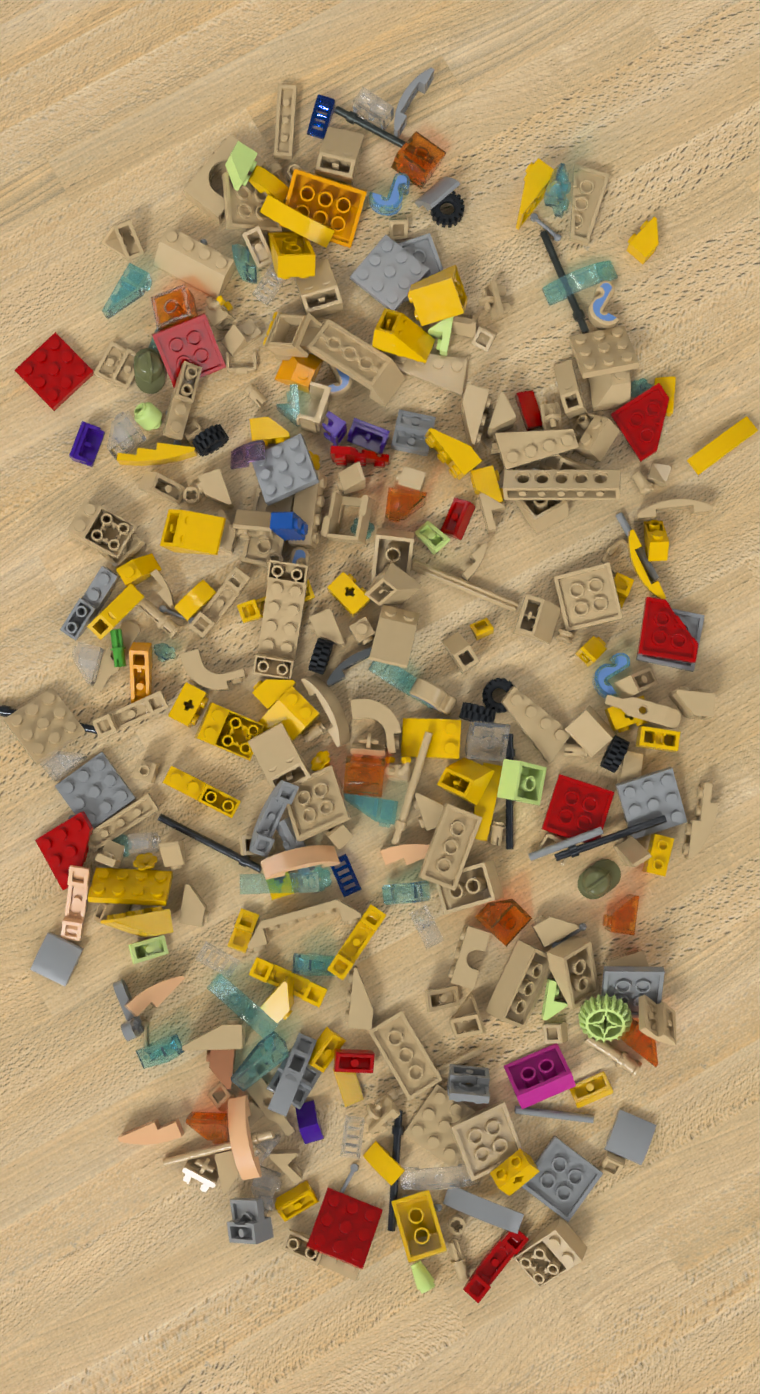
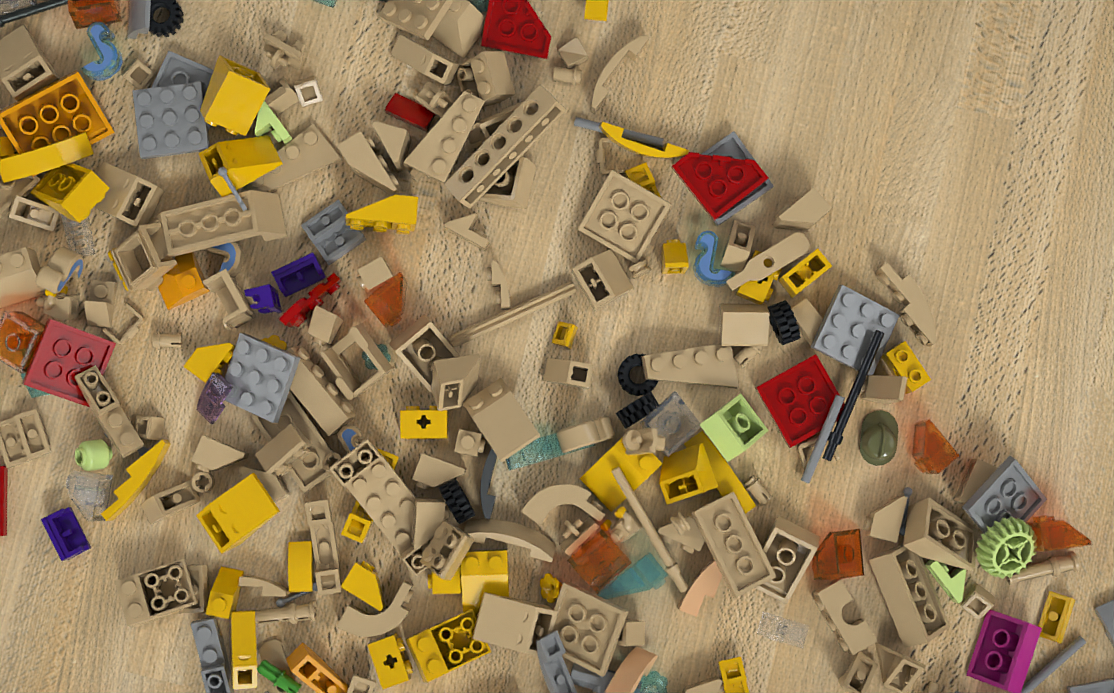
camera: 50 degrees left, 0 degrees up
(149, 371) = (52, 415): olive piece -> none
(164, 652) = (321, 638): clear light blue plant -> none
(210, 440) = (169, 419): black tyre -> none
(220, 648) = (365, 584): none -> yellow slope
(240, 292) = (60, 267): none -> tan animal
(245, 268) = (44, 243): clear light blue slope -> none
(285, 675) = (446, 550): none -> tan slope
(288, 526) = (314, 422): blue brick -> none
(292, 408) = (211, 319): clear light blue slope -> none
(293, 648) = (427, 518): none -> tan slope
(314, 732) = (519, 569): tan pin -> none
(351, 872) = (683, 655): clear blue slope -> none
(387, 331) = (223, 172): none -> light grey hinge
(406, 893) = (737, 621): clear light blue animal -> none
(432, 537) = (443, 303): yellowish green slope -> none
(432, 802) = (680, 523): none -> tan bush
(458, 518) = (447, 264): red slope -> none
(461, 732) = (643, 441): none -> tan hips
(486, 481) = (438, 210): yellow slope -> none
(509, 803) = (744, 457): black bar -> none
(655, 540) = (629, 111): yellow slope -> none
(657, 1020) = (1051, 504): tan slope -> none

